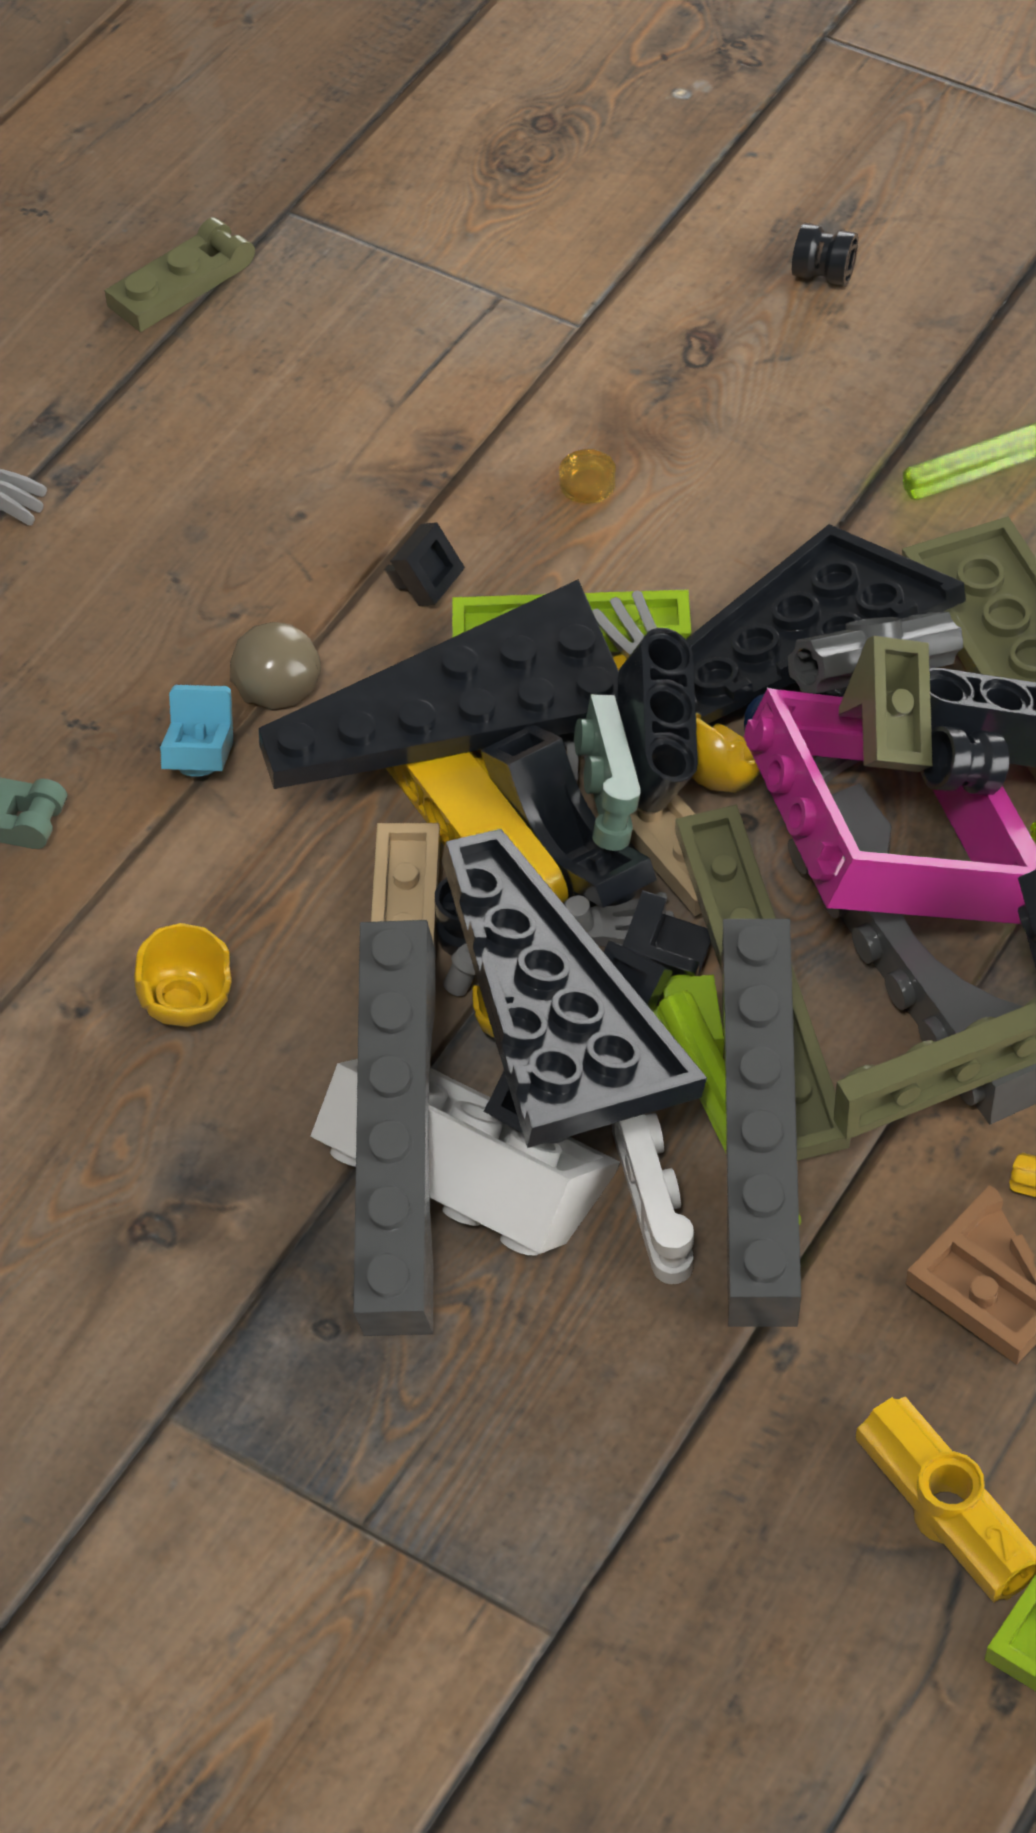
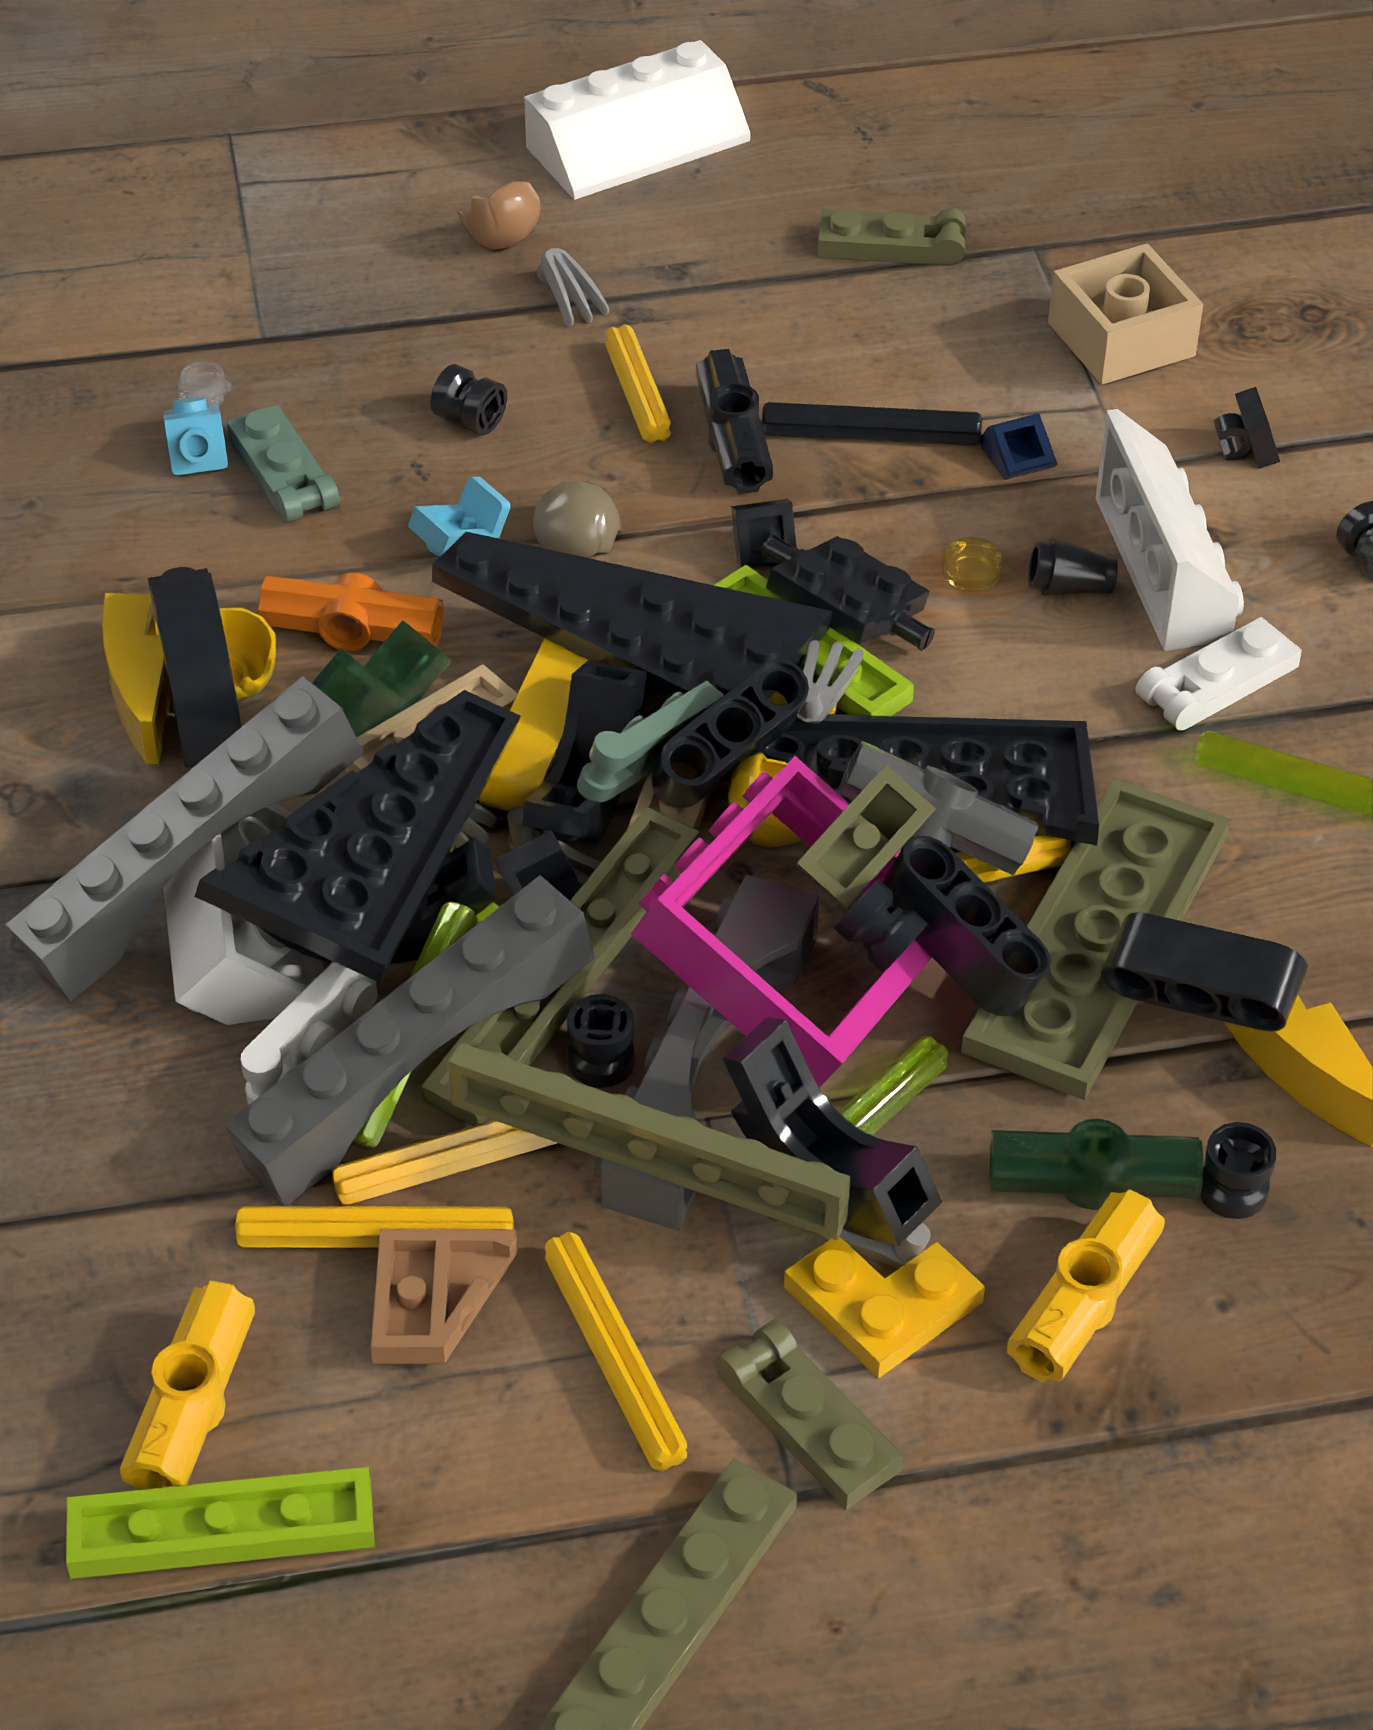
camera: 45 degrees right, 5 degrees down
(72, 634) = (464, 397): none -> black wheel
(123, 1052) = (137, 670): none -> yellow slope
(159, 527) = (638, 384): none -> yellow axle
(191, 986) = (195, 660): none -> black arch
(214, 868) = (348, 610): none -> orange piece
(283, 498) = (734, 421): none -> black piece
(334, 894) = (387, 682): none -> clear green brick
(371, 427) = (871, 423): none -> black axle
(449, 210) = (1125, 313): none -> tan brick
(496, 367) = (1018, 446): none -> dark blue slope
(538, 557) = (859, 589): none -> black plate
(639, 235) = (1248, 431): none -> black tile
(660, 428) = (1070, 569): none -> black cone
(700, 359) = (1164, 538): none -> white slope
(849, 424) = (1219, 673): none -> white plate
(849, 1011) = (600, 1040): none -> black wheel
(850, 1203) = (431, 1160): none -> yellow axle
(877, 1282) = (354, 1224): none -> yellow axle

